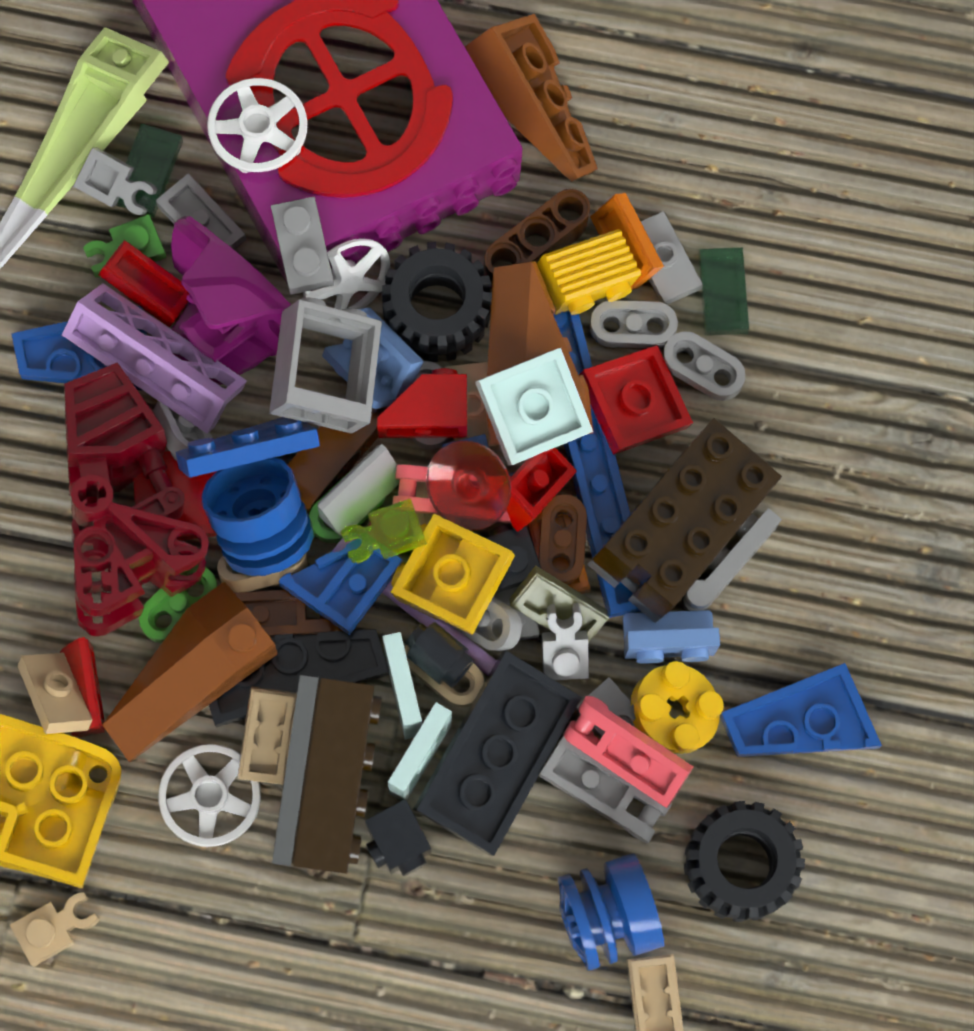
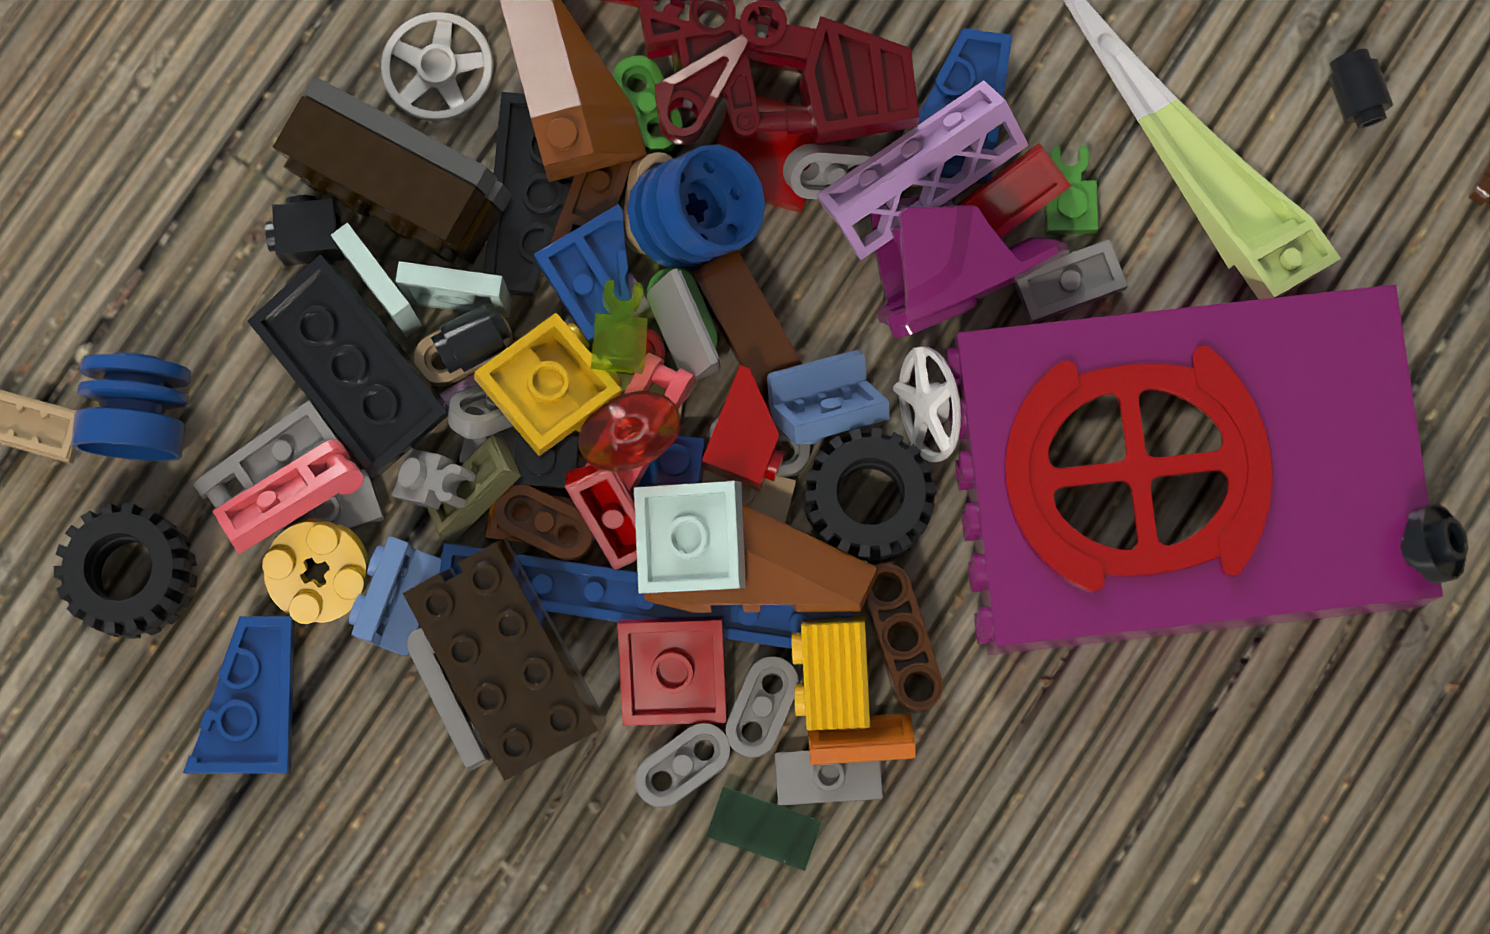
camera: 120 degrees right, 5 degrees up
(109, 180) = (1146, 194): light grey plate -> none
(153, 161) = (1153, 248): clear green tile -> none
(247, 446) = (774, 223): blue wing -> none
(257, 126) = (1130, 357): white wheel -> none
(267, 735) = (470, 135): tan plate -> none
(302, 245) = (970, 354): light grey plate -> none
(314, 407) = (763, 348): light grey window -> none
(521, 76) = (1095, 700): dark orange wedge -> none

